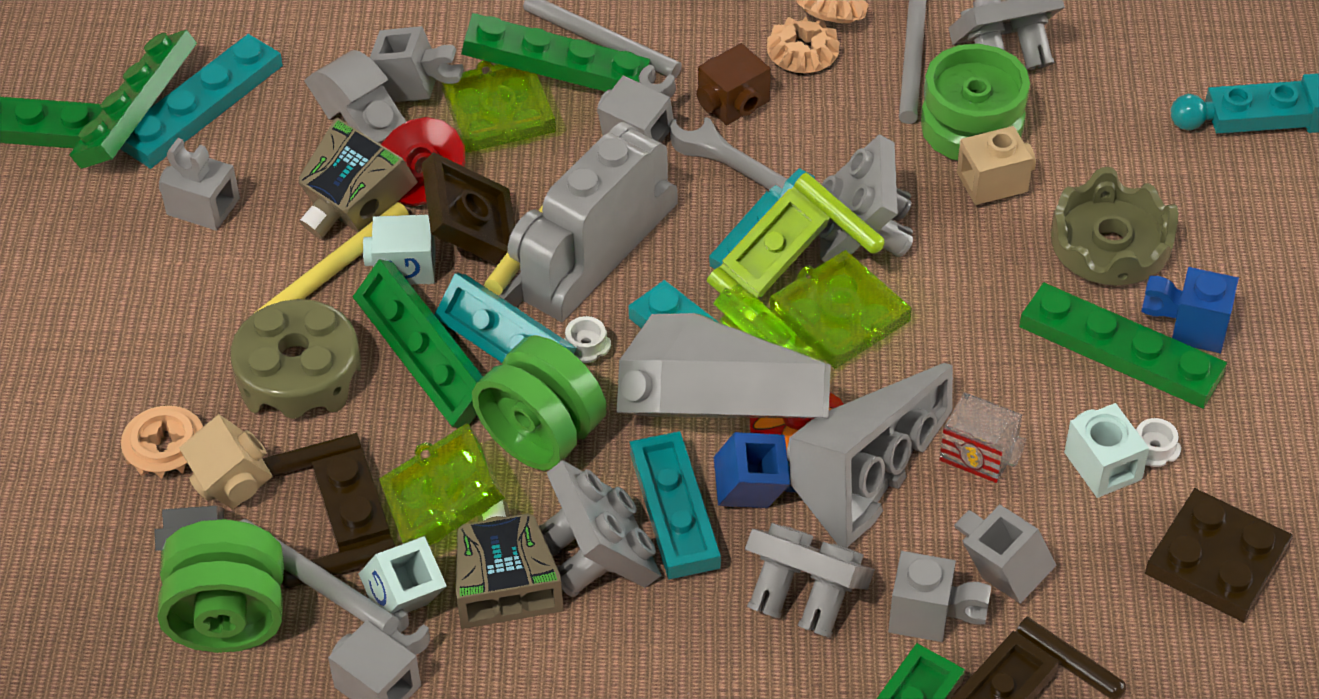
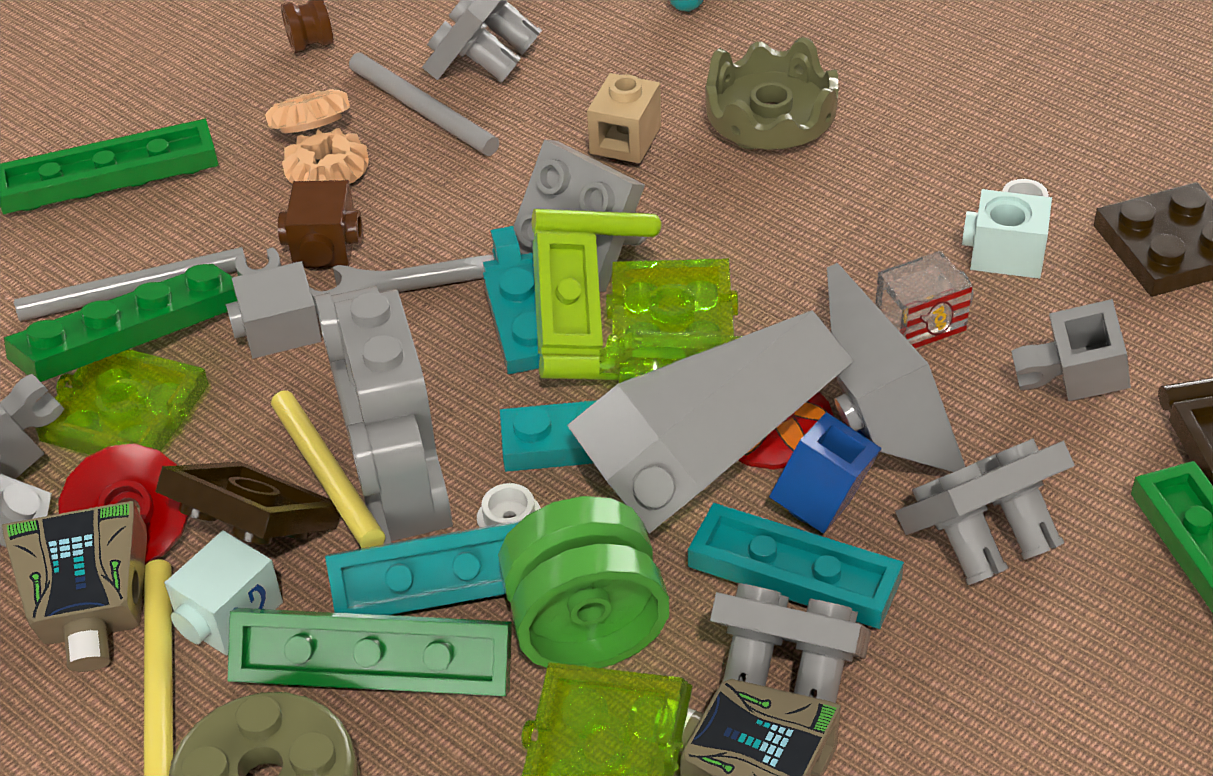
camera: 50 degrees left, 5 degrees down
(926, 597) = (1094, 434): light grey brick -> none
(972, 93) = (541, 86): bright green wheel -> none
(1123, 345) = (889, 167): green plate -> none
(1199, 310) = (910, 96): blue brick -> none

